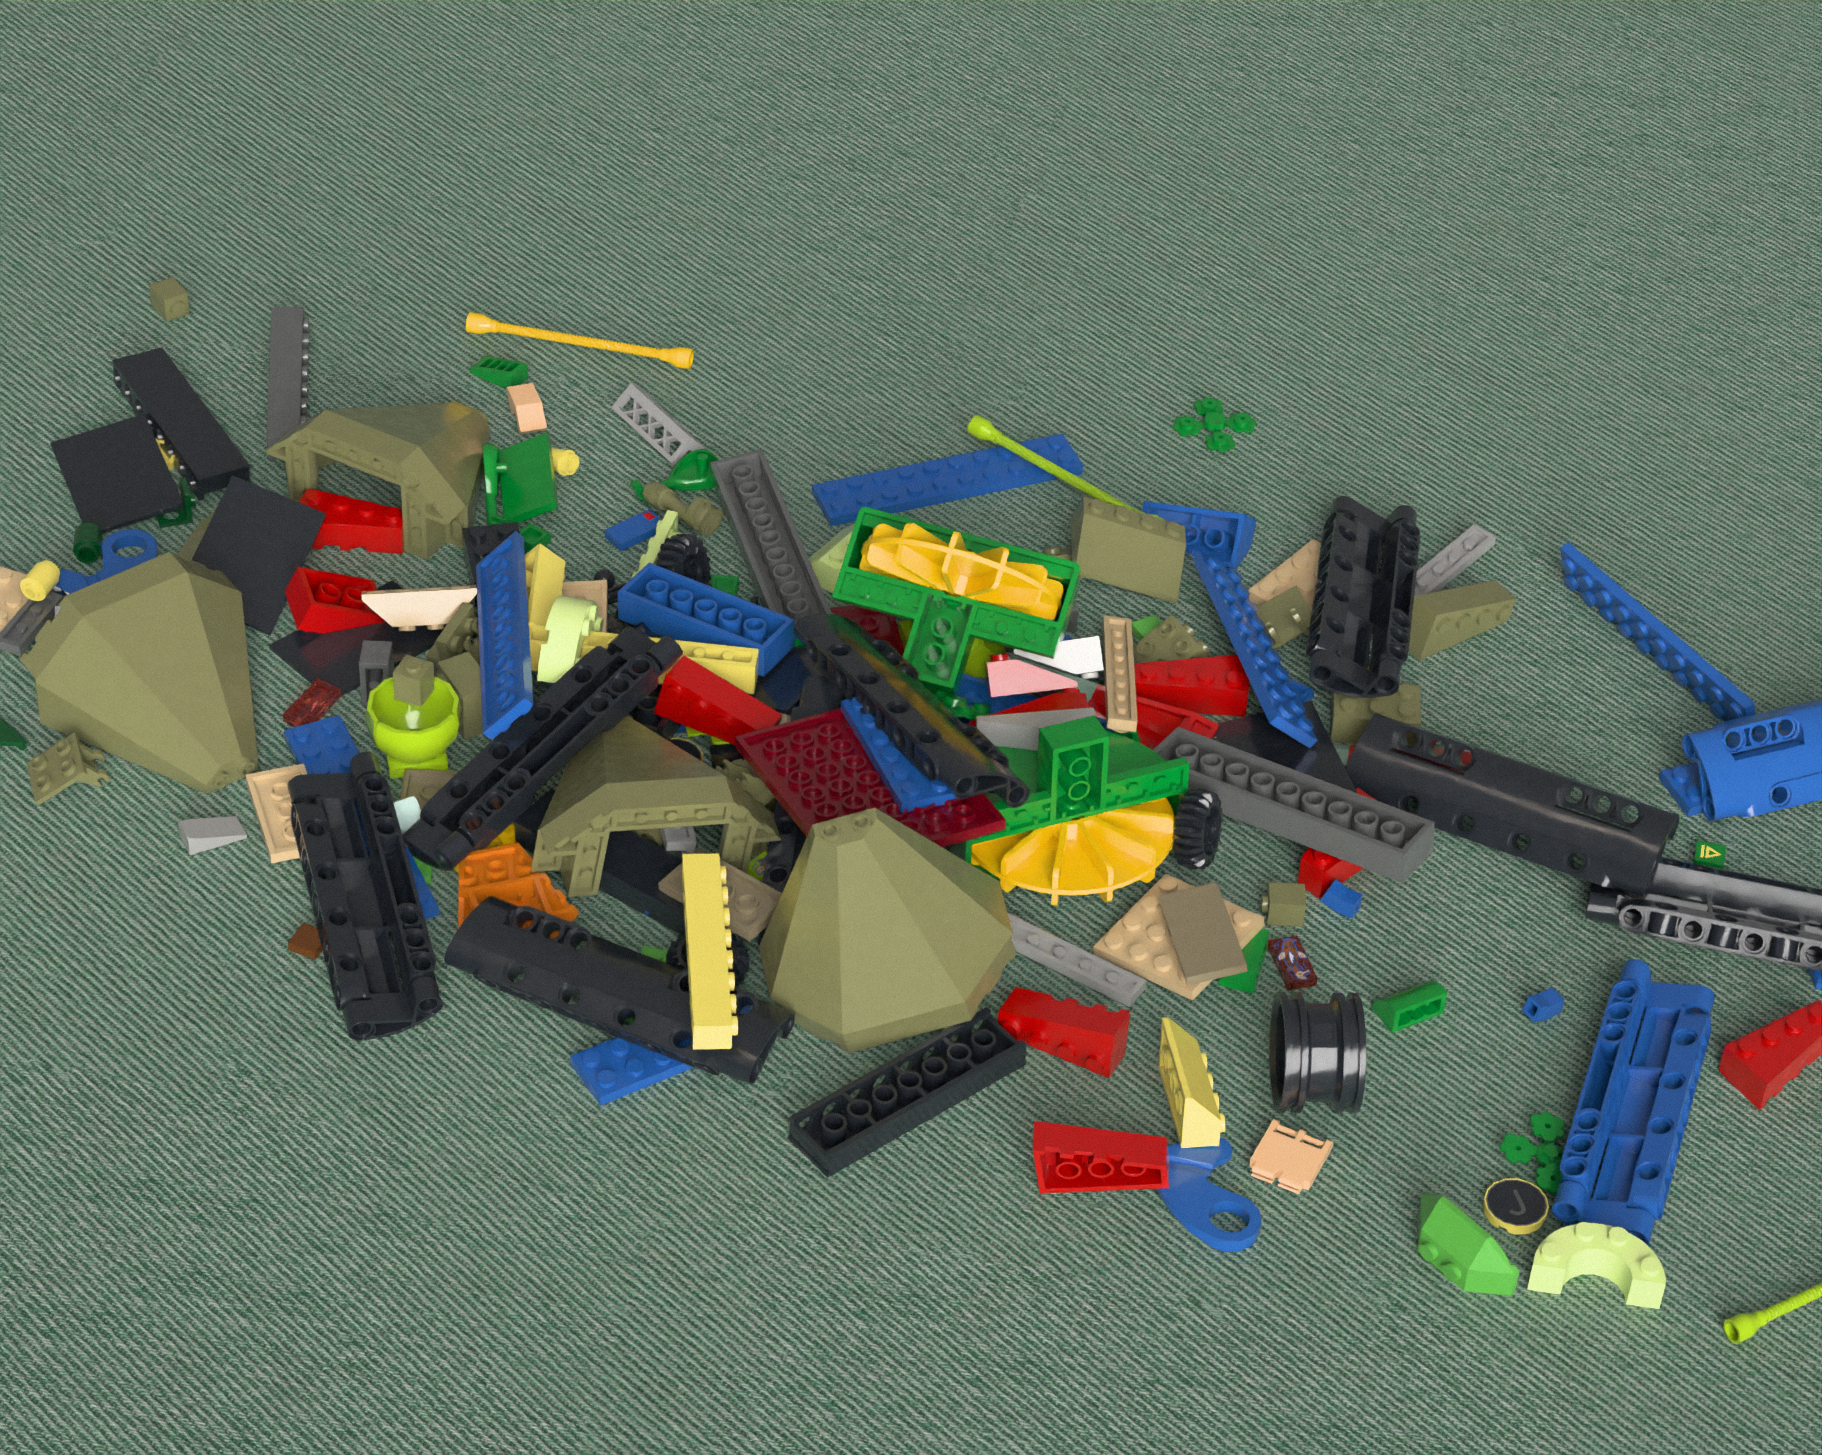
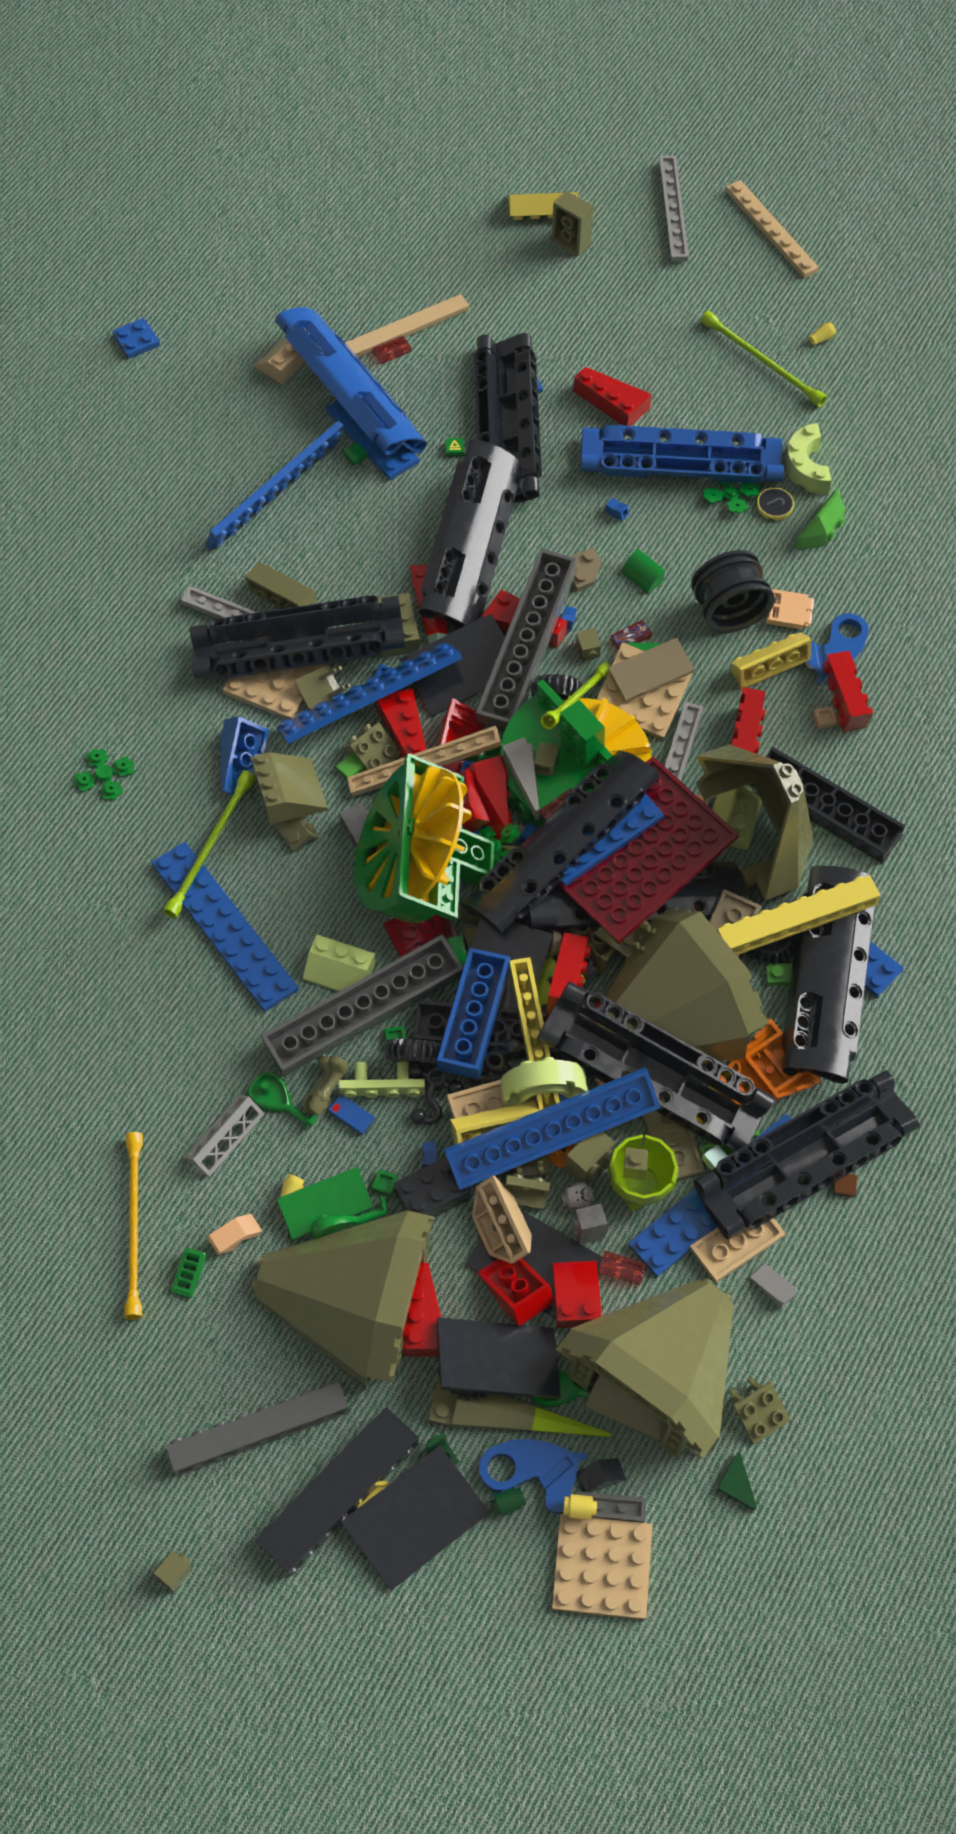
camera: 105 degrees left, 20 degrees up
(296, 650) = (576, 1293): none -> red slope
(1091, 706) = (551, 718): none -> lime hose
(1437, 940) = (587, 569): none -> dark tan plate

